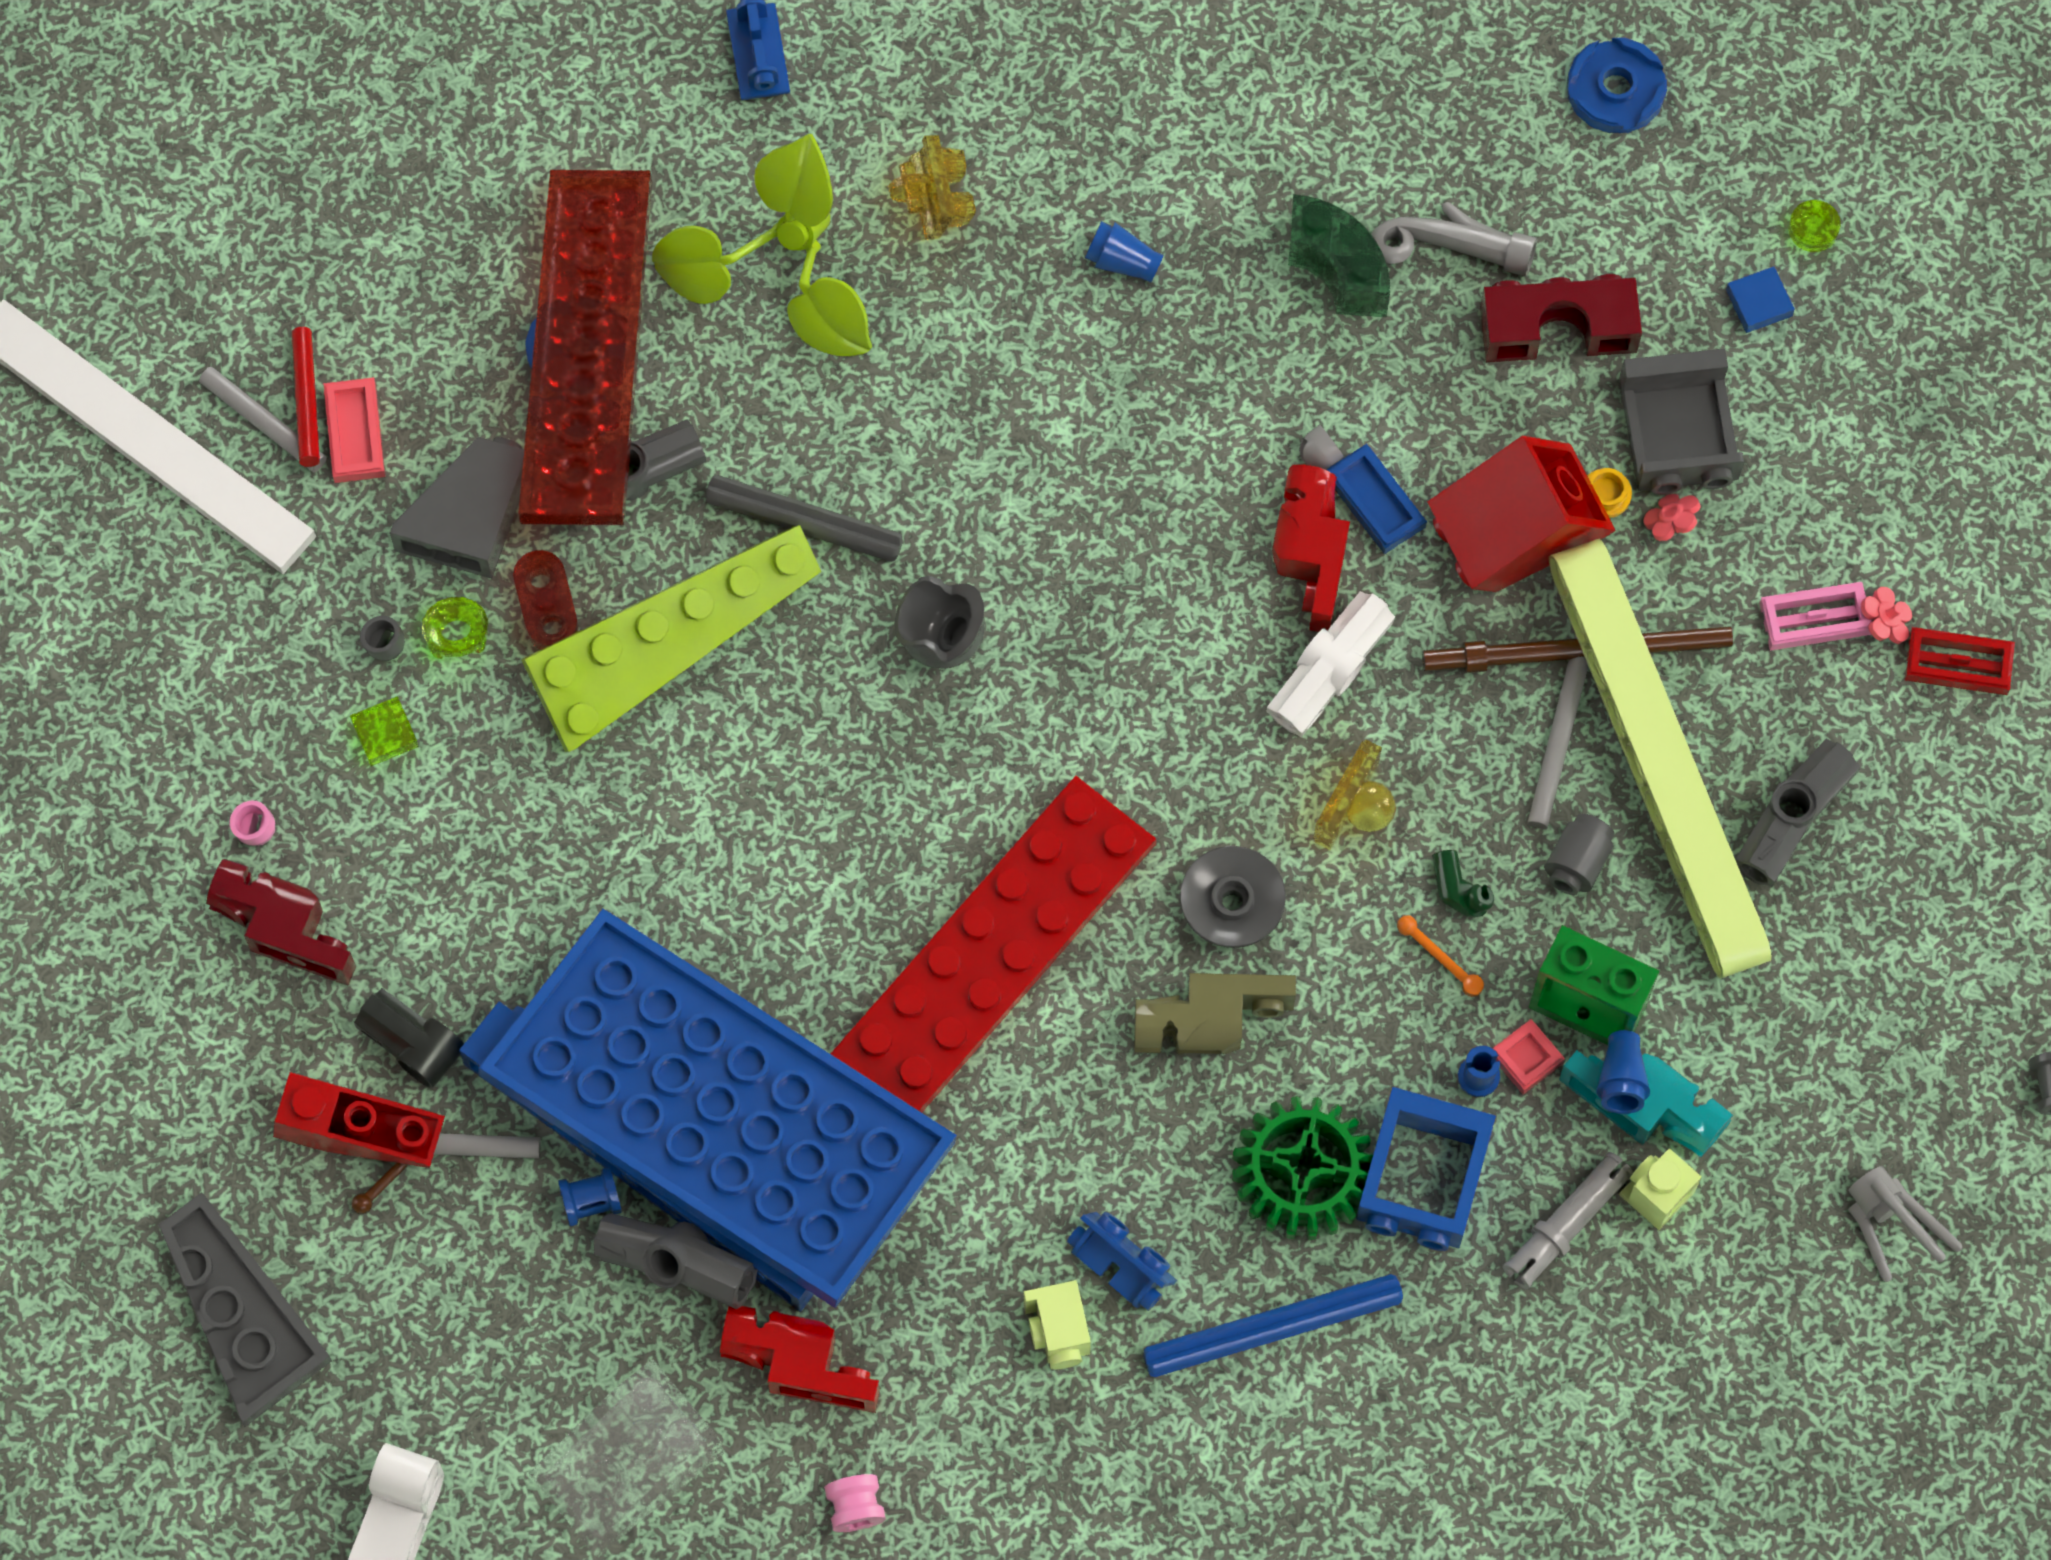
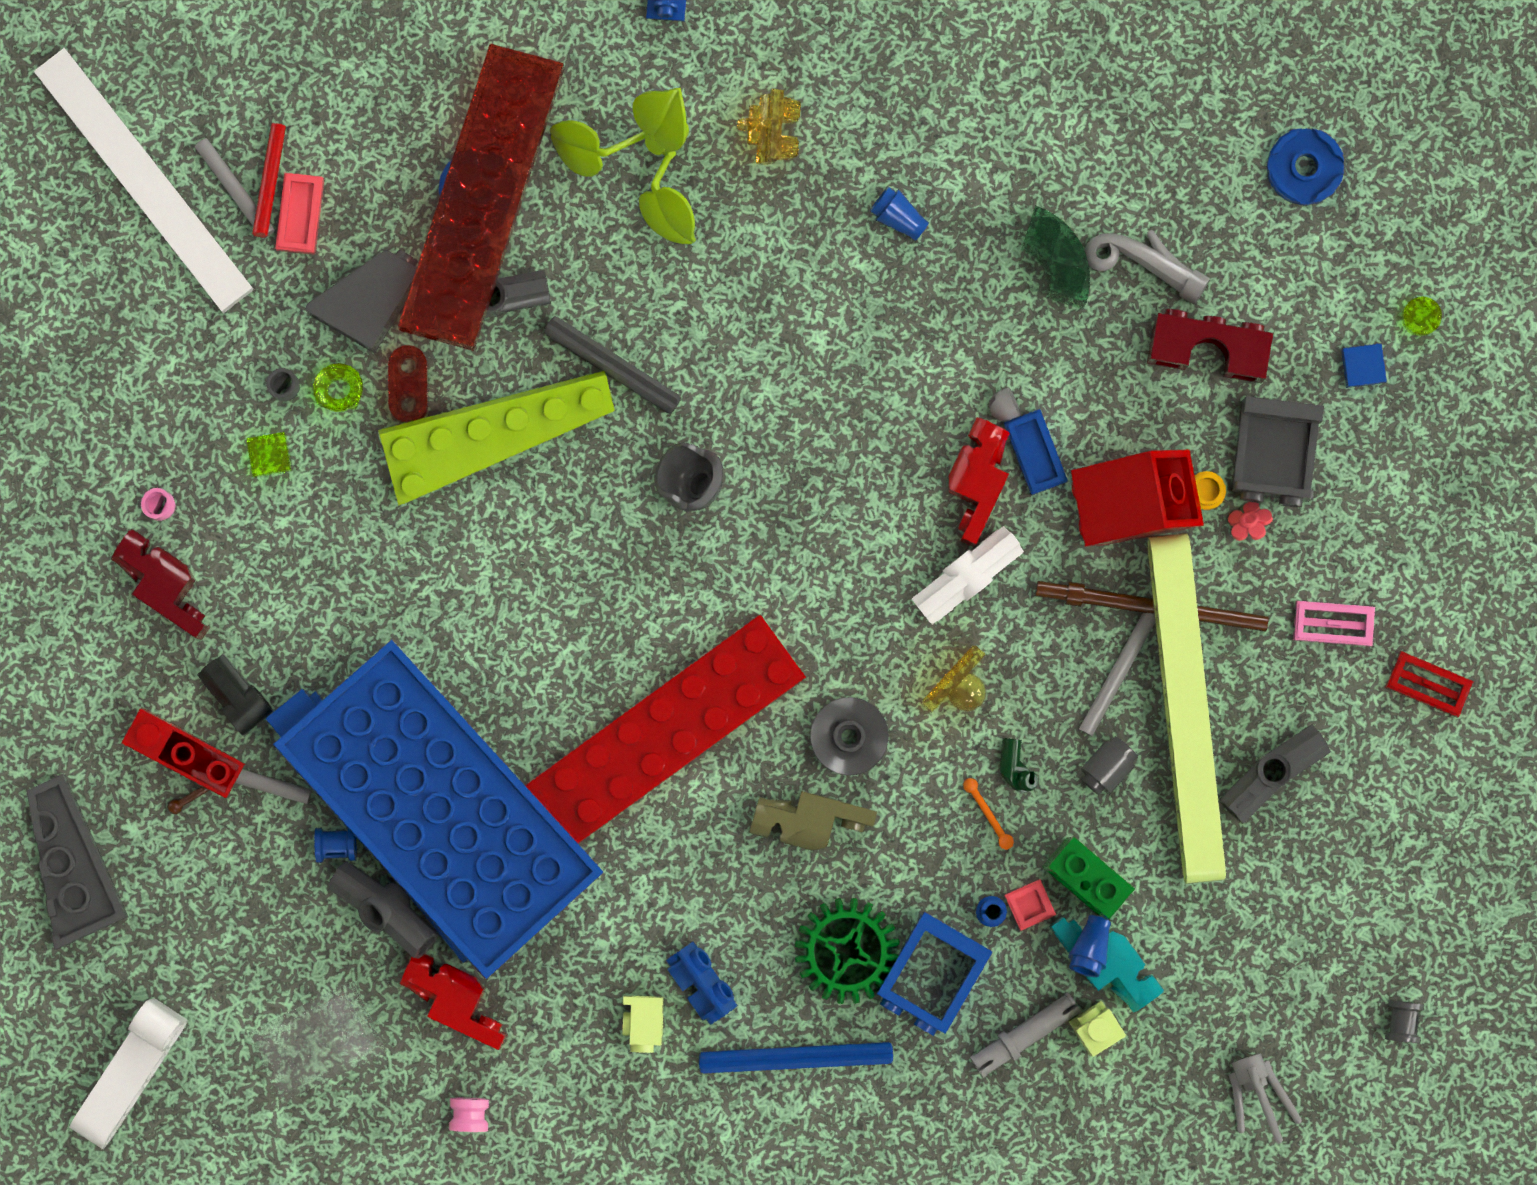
camera: 15 degrees right, 15 degrees up
(1887, 617) = (1385, 637): coral plant -> none

